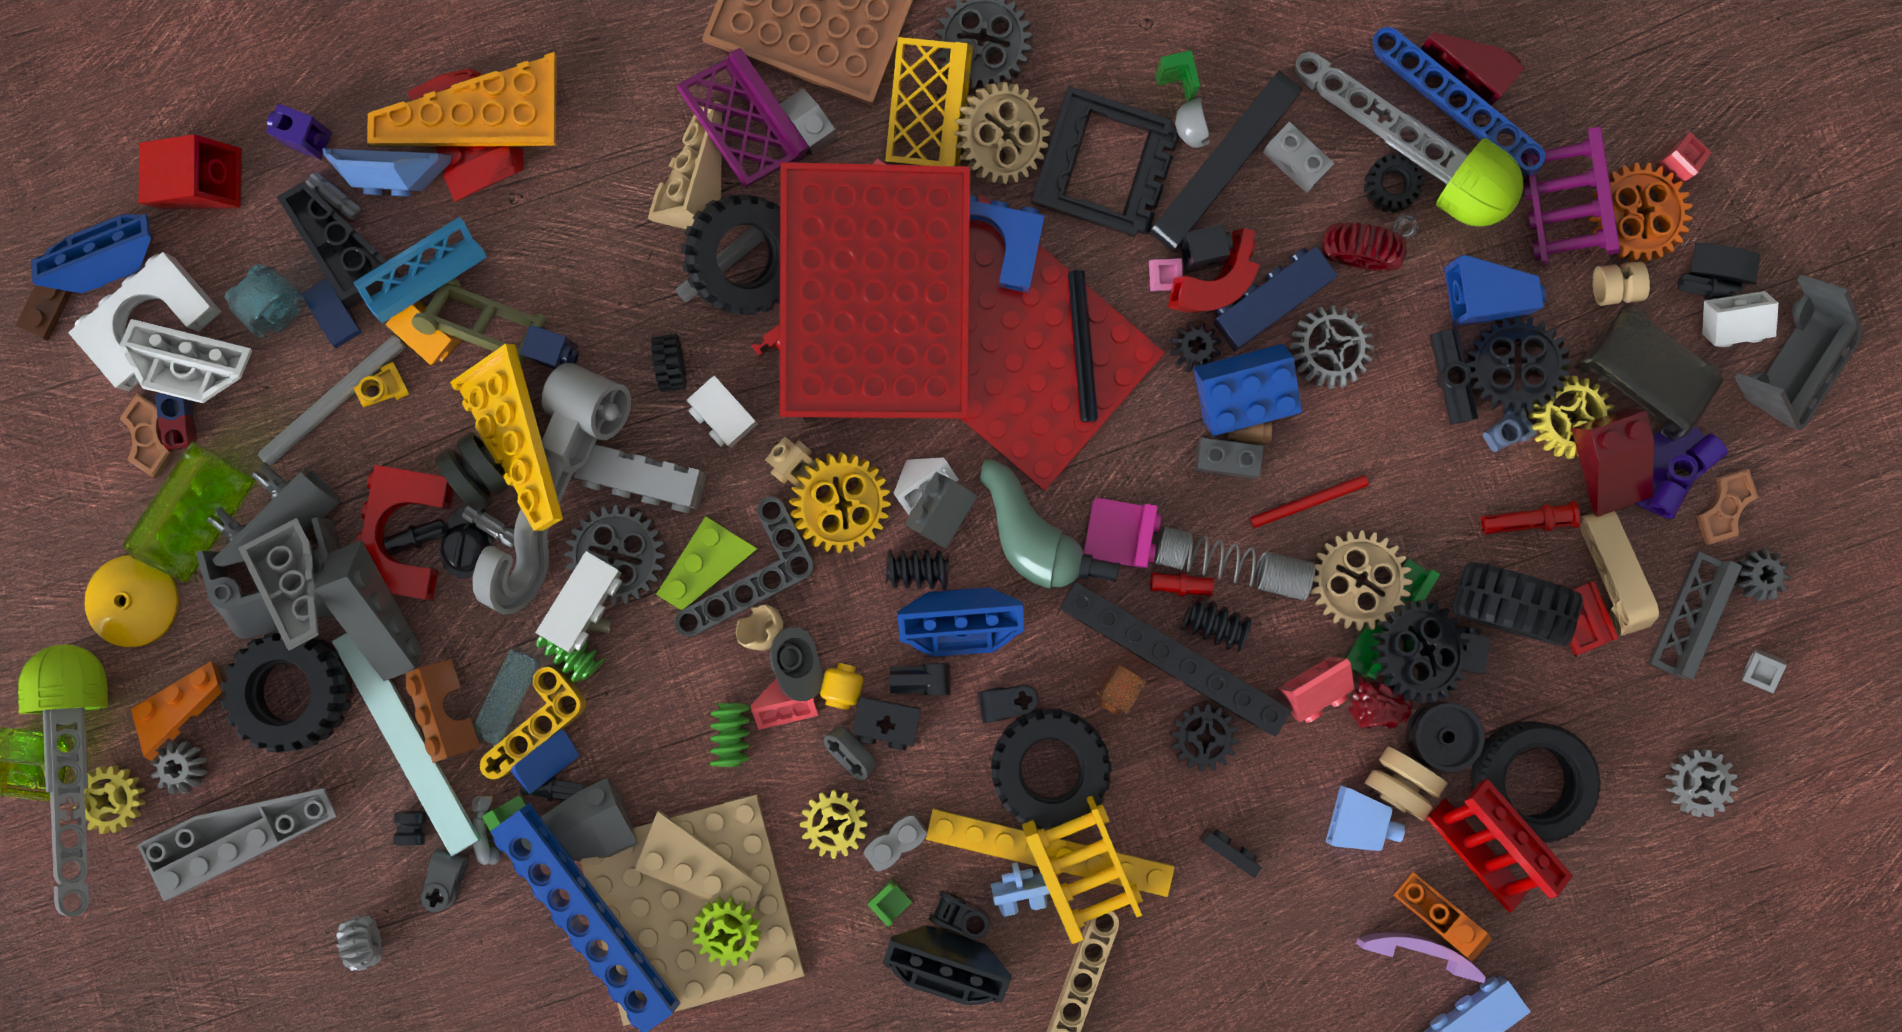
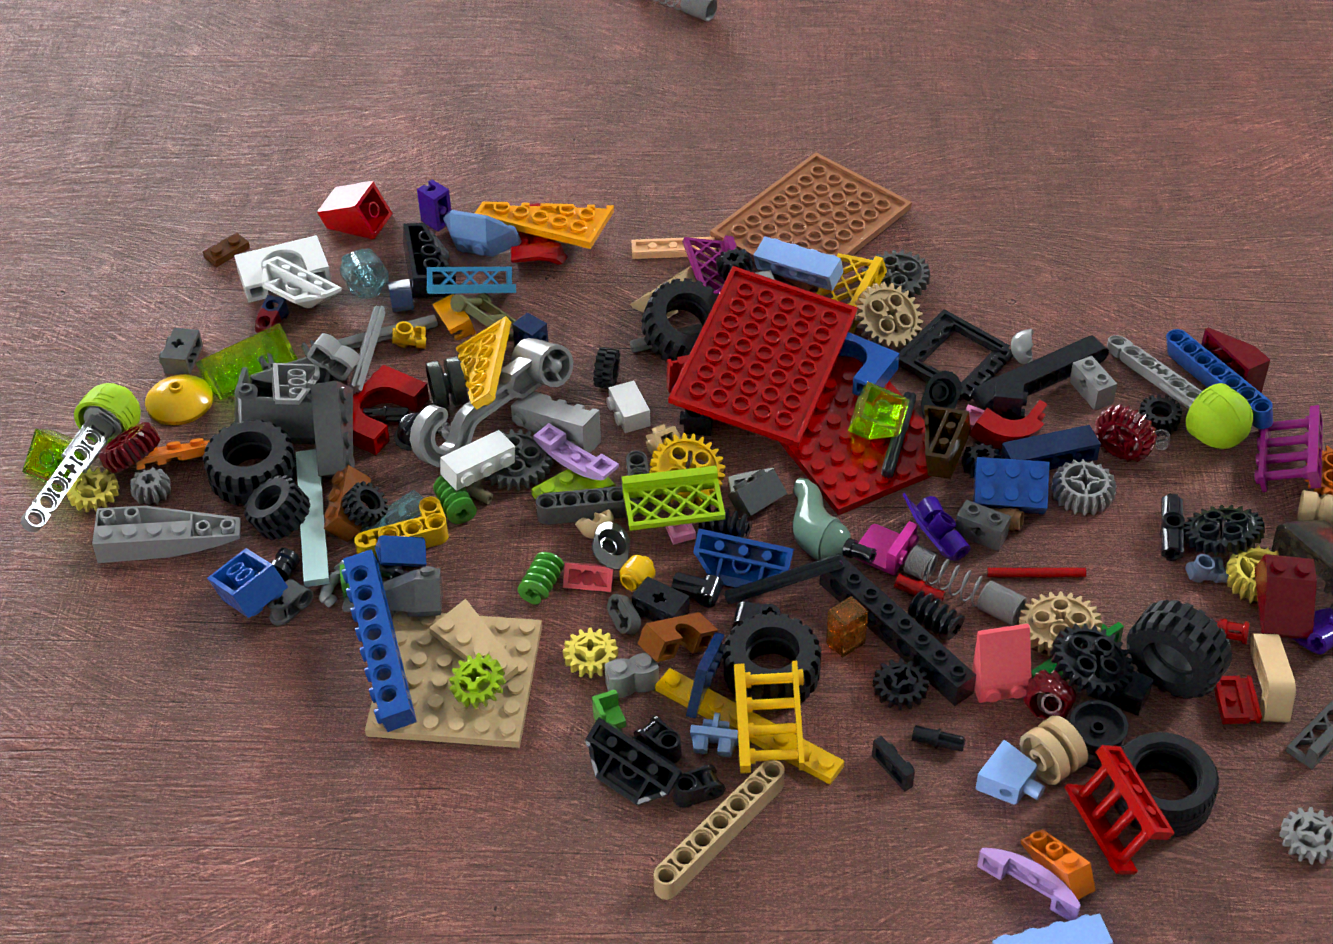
camera: 20 degrees right, 40 degrees down
(93, 510) = (181, 351): none -> dark grey brick
(94, 255) = (274, 231): blue wedge -> none
(123, 740) = (129, 447): none -> dark red gear
(147, 445) = (245, 322): nougat tile -> none
(311, 502) = (330, 354): none -> light grey brick
(340, 442) = (367, 349): none -> light grey axle
(342, 763) = (277, 507): none -> black tyre
(359, 943) = (207, 614): light grey gear -> none
(387, 894) = (248, 583): none -> blue brick
(485, 712) = (358, 511): none -> black tyre
(656, 82) = (661, 248): none -> light nougat tile
(692, 534) = (573, 457): none -> lavender slope
(779, 116) = (735, 258): none -> black gear
(835, 551) = (671, 484): none -> lime fence
(851, 78) = (798, 263): none -> light blue brick
(865, 594) = (681, 533): none -> bright pink plate
(917, 800) = (663, 637): none -> dark orange arch
(985, 822) = (705, 673): none -> dark blue wing
(1023, 642) = (783, 579): none -> black axle
(1029, 961) = (697, 787): none -> black piece
(1050, 330) = (878, 413): none -> clear neon green slope
(1113, 256) = (942, 391): none -> black piece
(1146, 348) = (944, 439): none -> dark brown wedge
(1174, 486) = (939, 527): none -> dark purple panel
(1179, 68) = (1020, 313): green panel -> none
(1268, 796) = (938, 738): none -> black axle
(1490, 292) = (1214, 480): blue slope -> none

